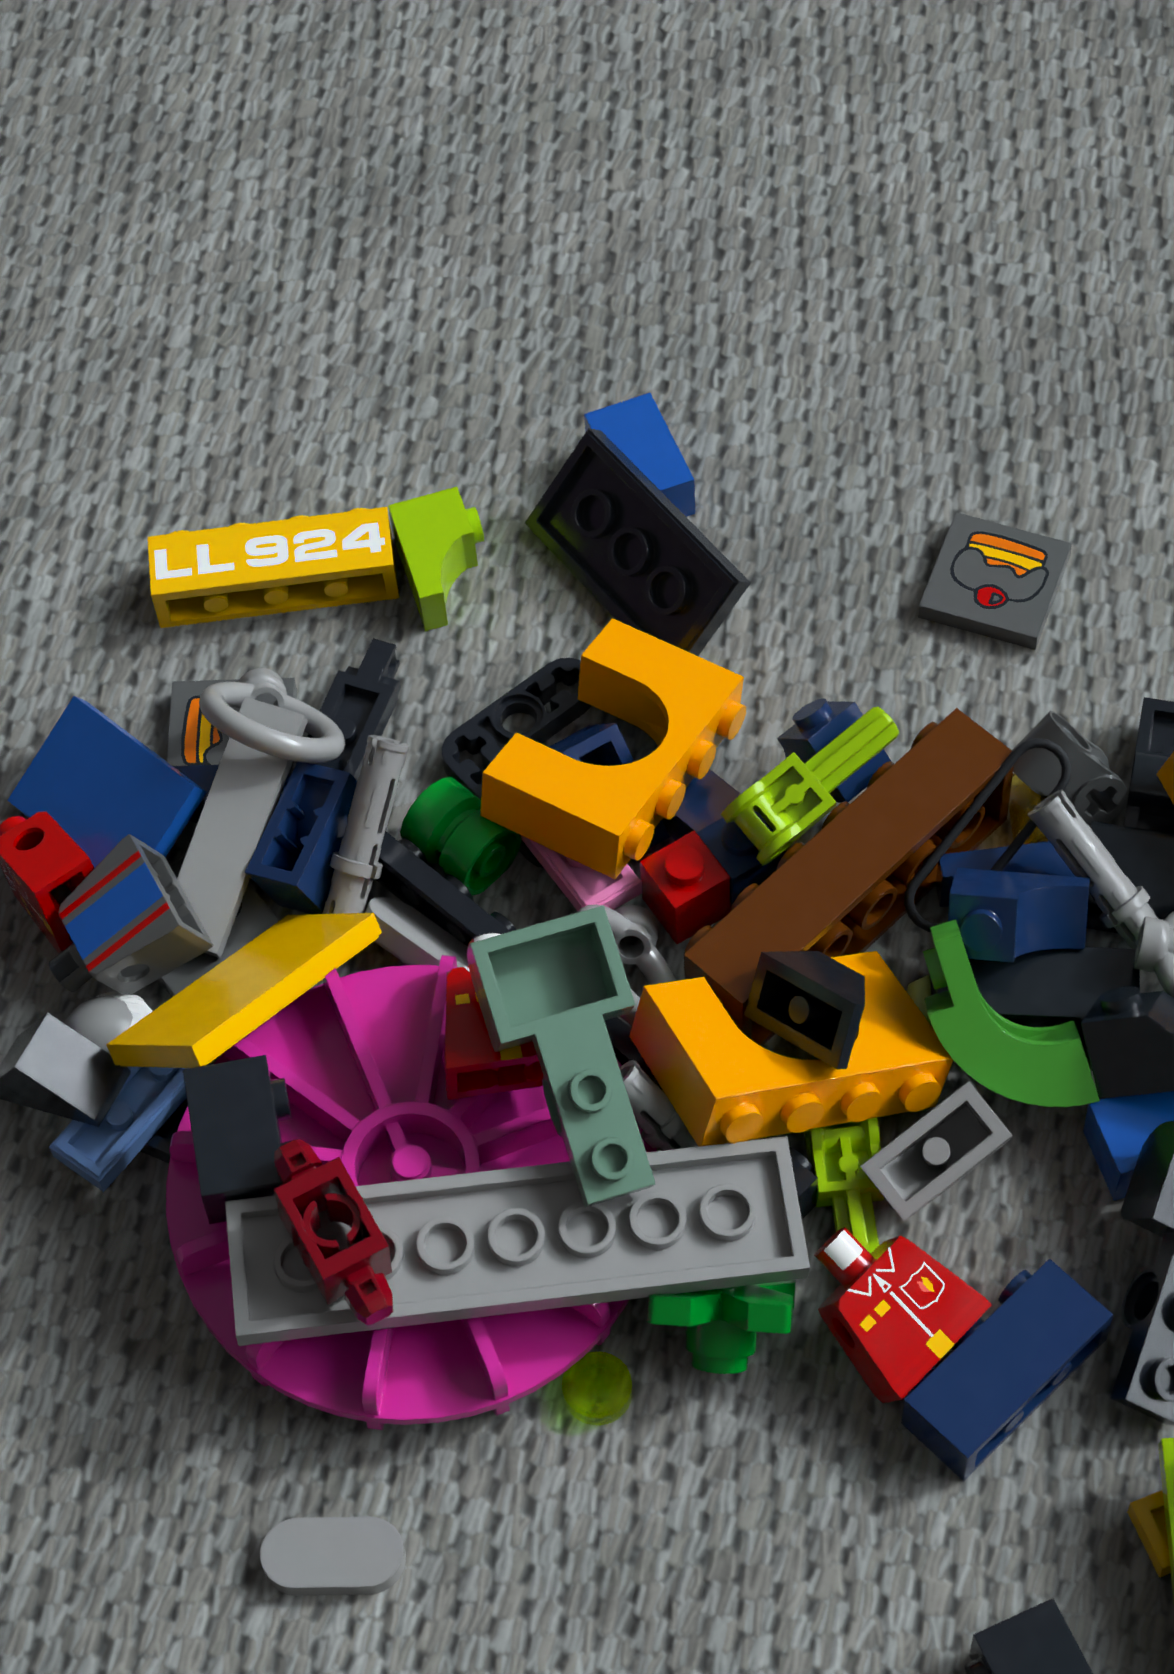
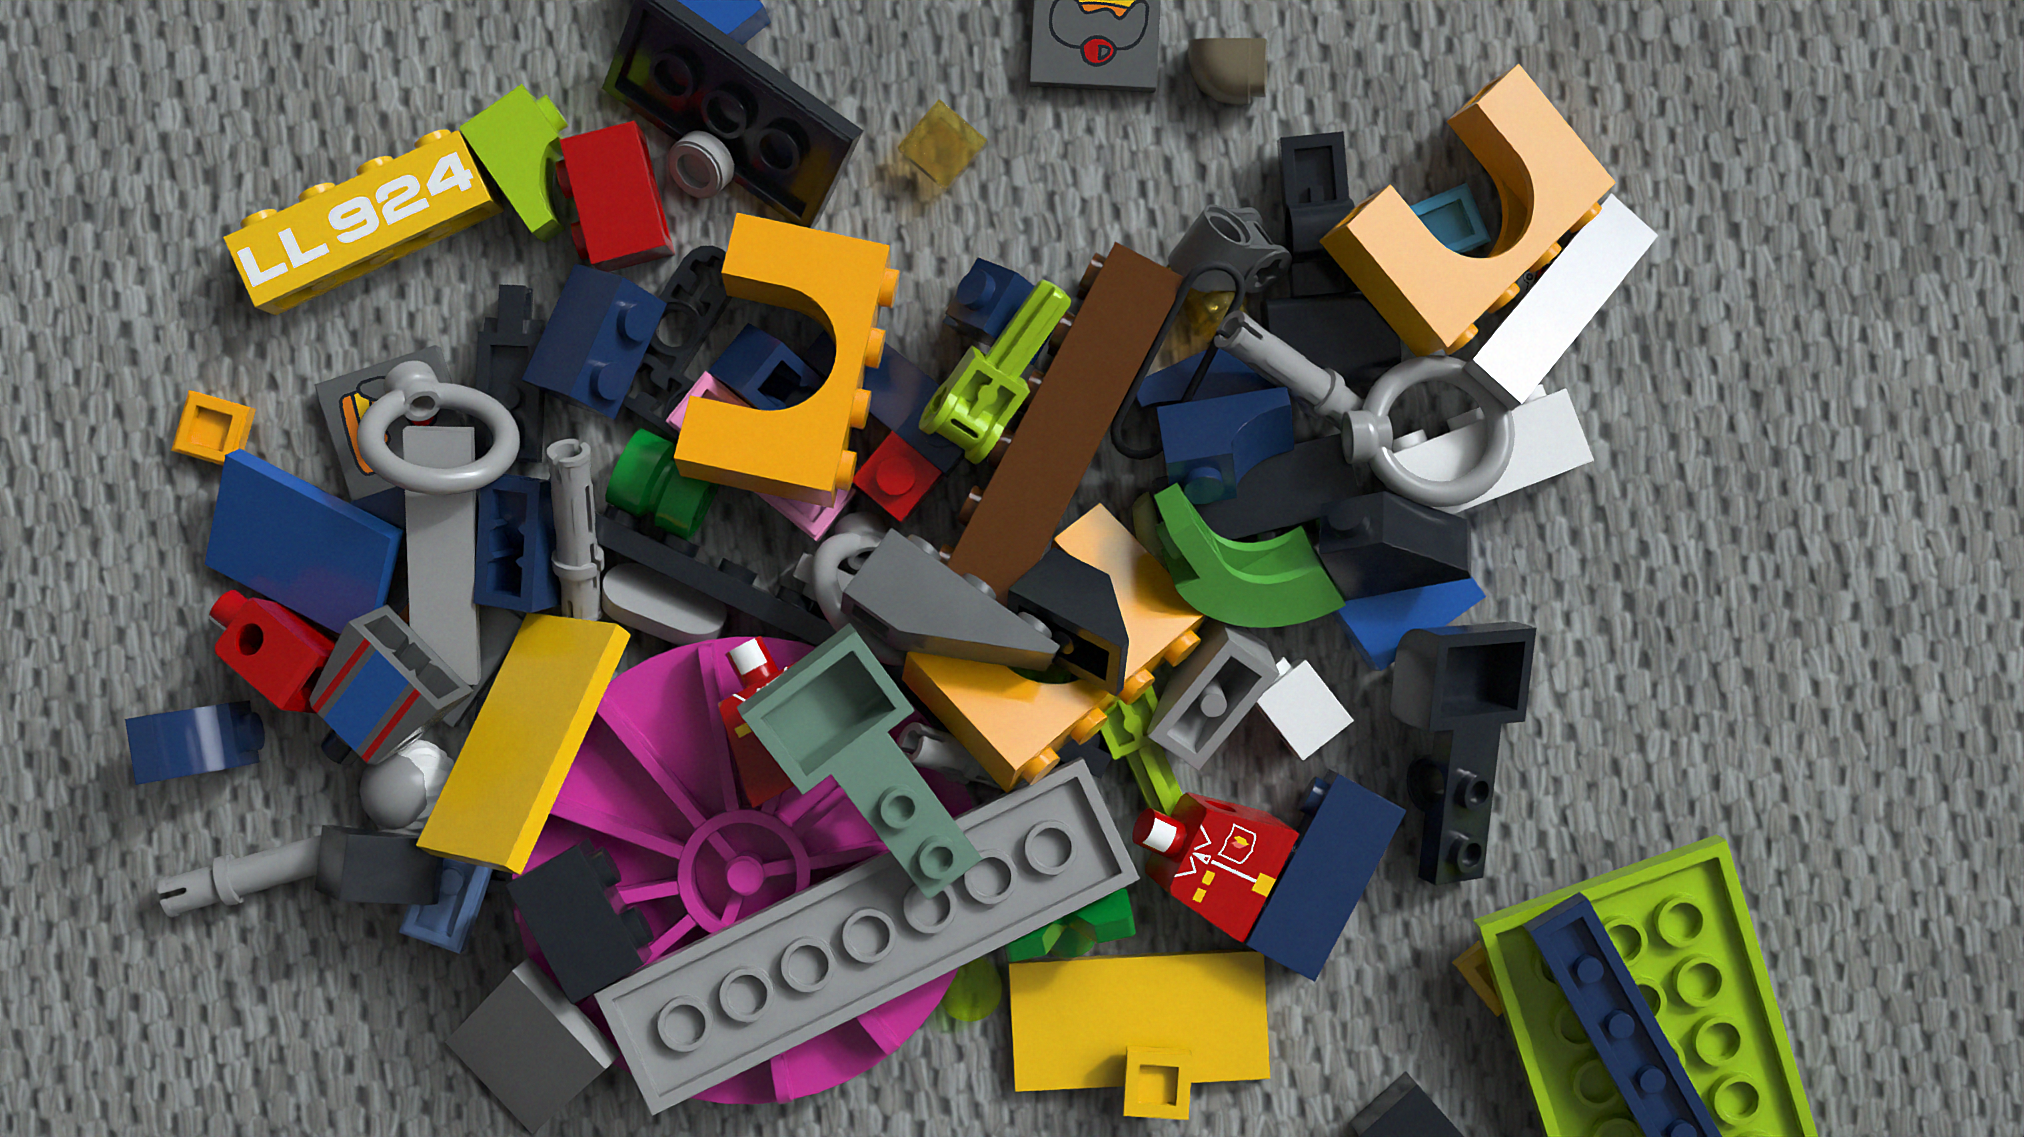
camera: 25 degrees left, 30 degrees up
(56, 690) = (212, 427): none -> light orange tile
(134, 1281) = (532, 1045): none -> light grey tile
(353, 1272) = (760, 1055): dark red piece -> none
(443, 698) = (594, 340): none -> dark blue brick
(504, 602) = (614, 197): none -> red brick
(591, 595) = (700, 164): none -> light grey tile
(691, 953) = (929, 609): none -> dark grey slope
(766, 1519) = (1157, 1082): none -> yellow plate
(767, 1472) = (1085, 1010): none -> yellow tile
(820, 635) = (942, 145): none -> clear yellow plate
(1027, 1200) = (1302, 708): none -> white brick
(1114, 635) = (1230, 68): none -> dark tan piece

